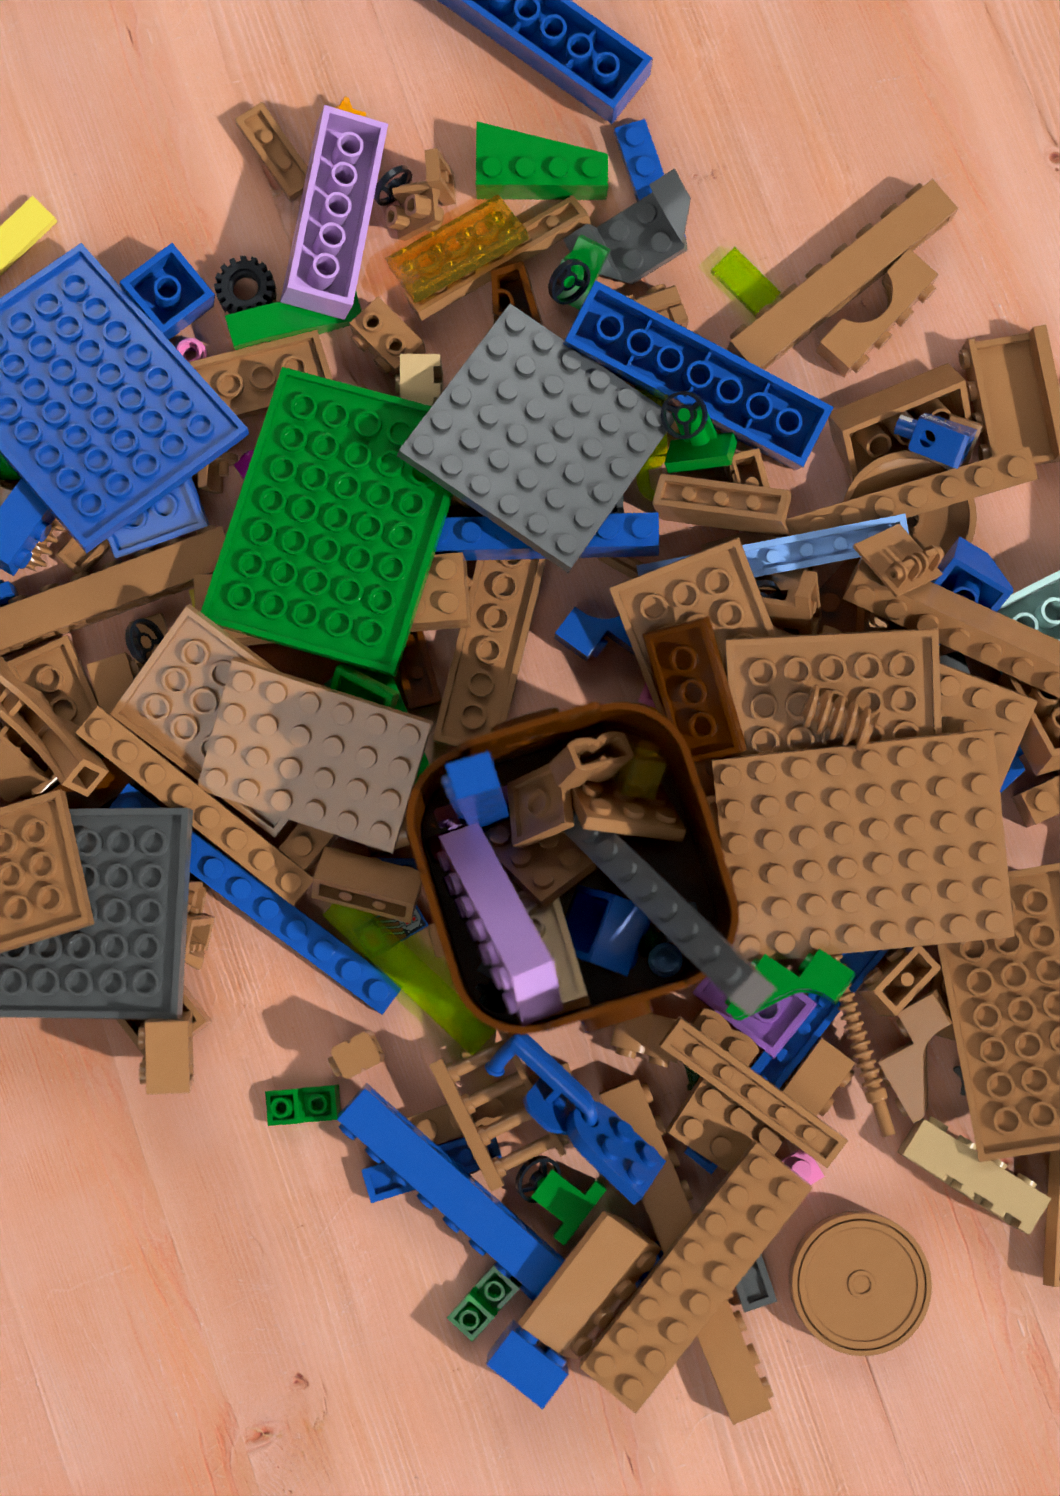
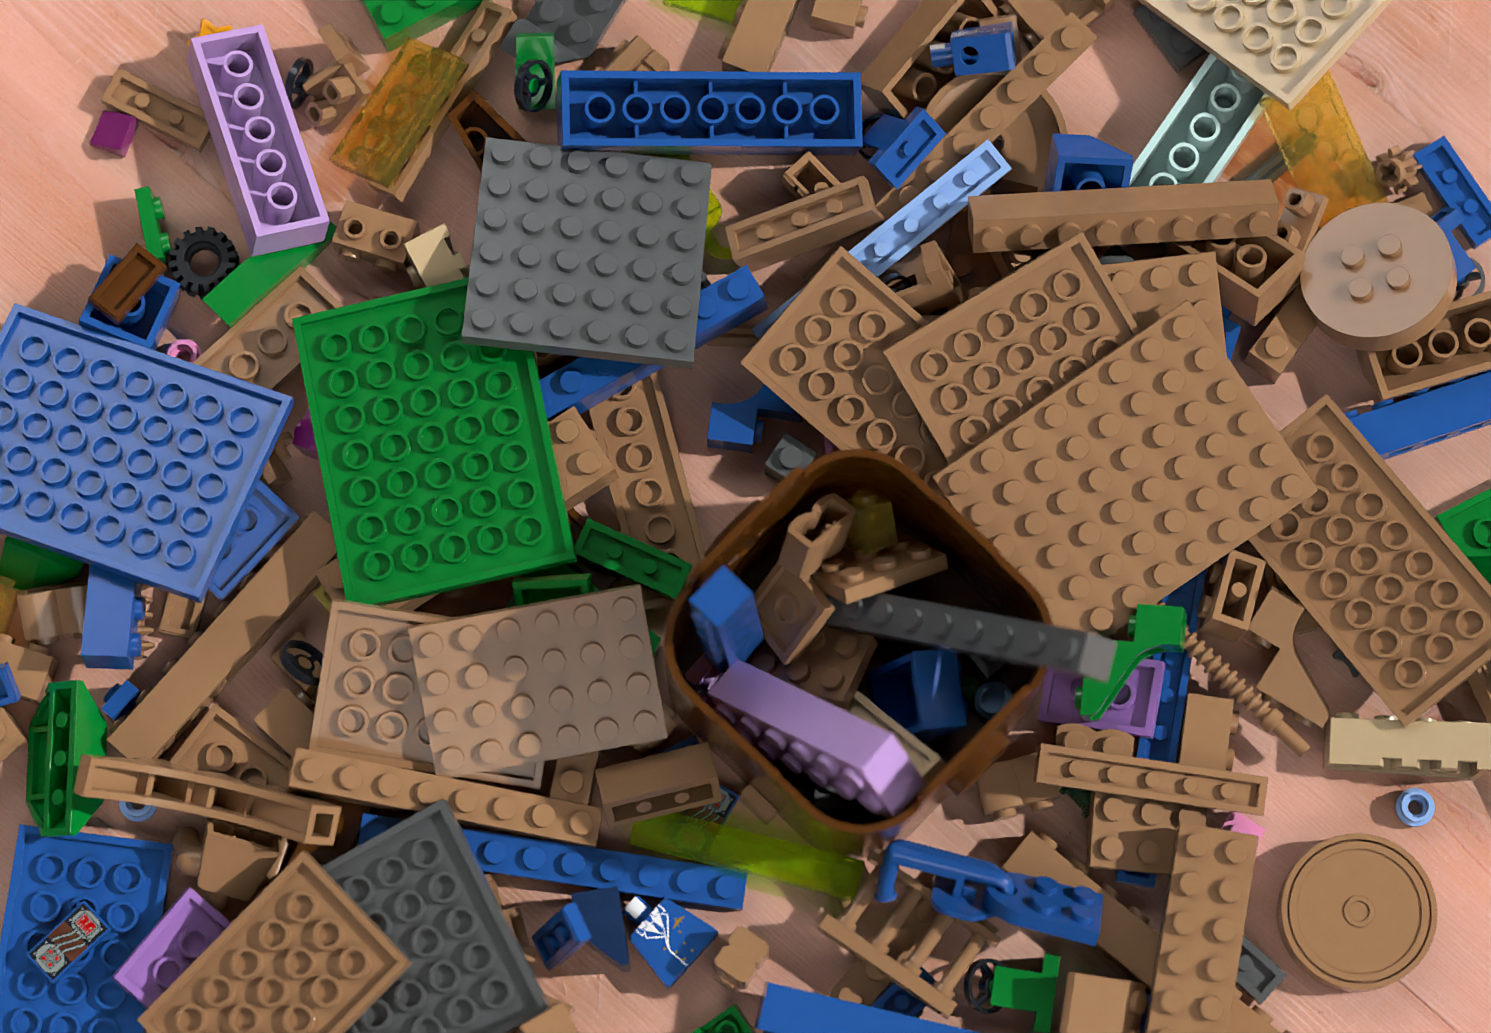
camera: 30 degrees left, 5 degrees down
(172, 272) = (127, 284): none -> reddish brown tile
(217, 252) = (150, 213): none -> green plate
(226, 962) = (561, 936): none -> blue tile
(233, 152) = (114, 133): none -> magenta slope
(264, 970) = (604, 919): none -> dark blue slope
(312, 1005) = (668, 937): none -> blue torso
(444, 696) = (632, 559): none -> green plate
(610, 685) = (788, 456): none -> dark grey brick
(695, 688) = (877, 411): reddish brown tile -> none
(698, 443) = (747, 176): green piece -> none
(833, 480) = (900, 143): none -> blue piece
(838, 717) = (1033, 368): medium nougat piece -> none
(900, 560) = (1008, 185): medium nougat hinge -> none
(959, 1231) = (1425, 802): none -> light blue plate

